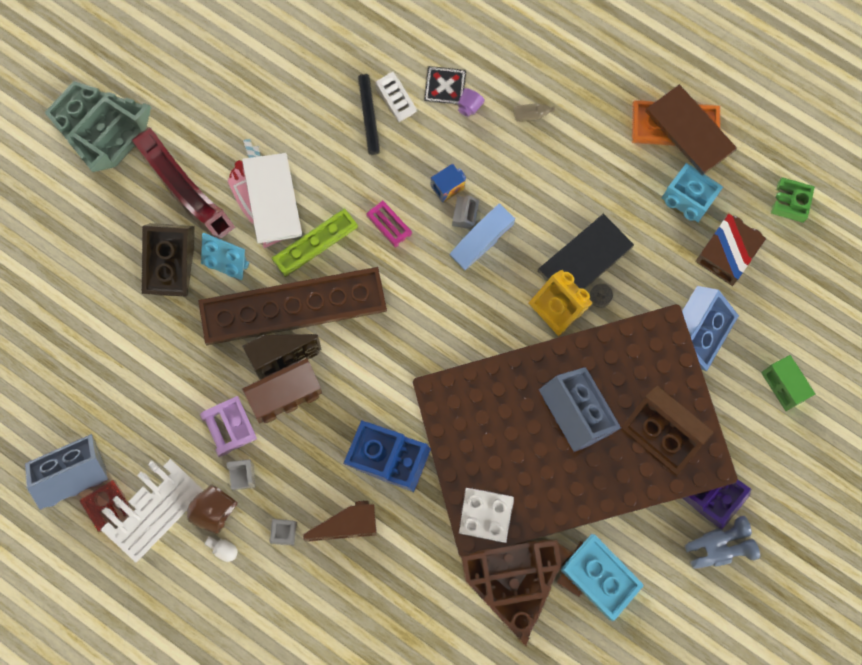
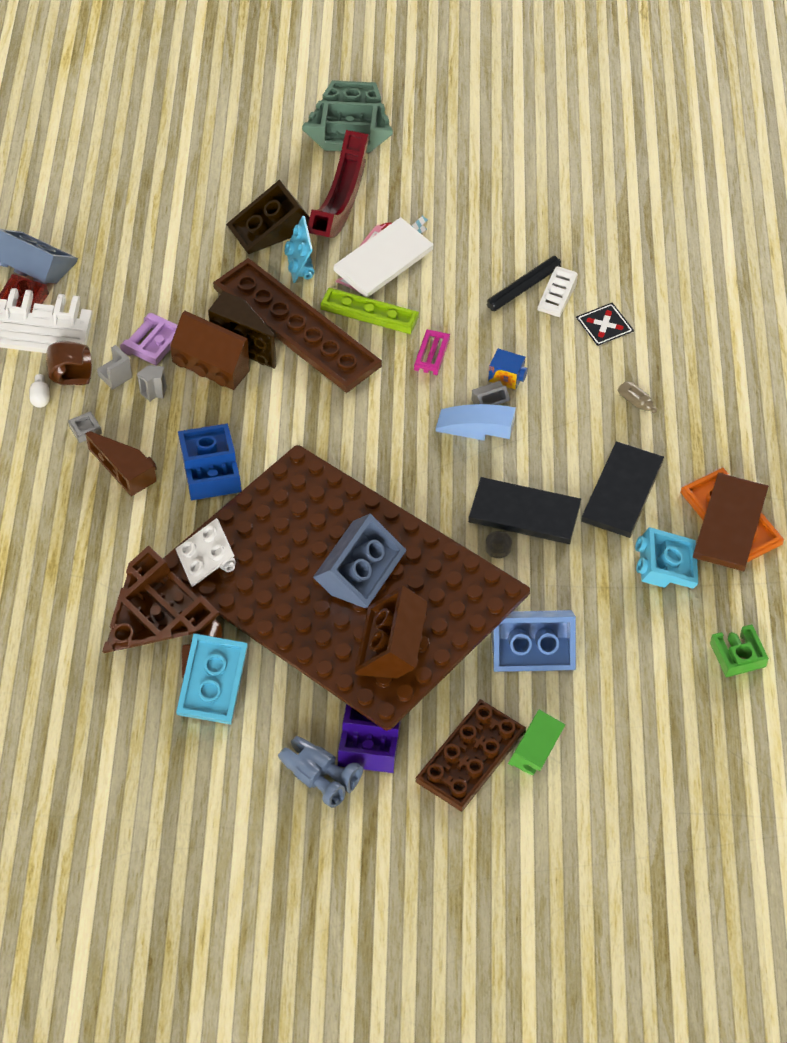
camera: 60 degrees right, 20 degrees down
(279, 453) = (152, 382): none -> light grey piece
(470, 102) = (600, 344): medium lavender hat -> none
(560, 302) = (461, 505): yellow plate -> none
(610, 179) = (622, 489): none -> black tile
(731, 249) = (637, 618): panel -> none
(766, 432) = (470, 755): none -> reddish brown tile

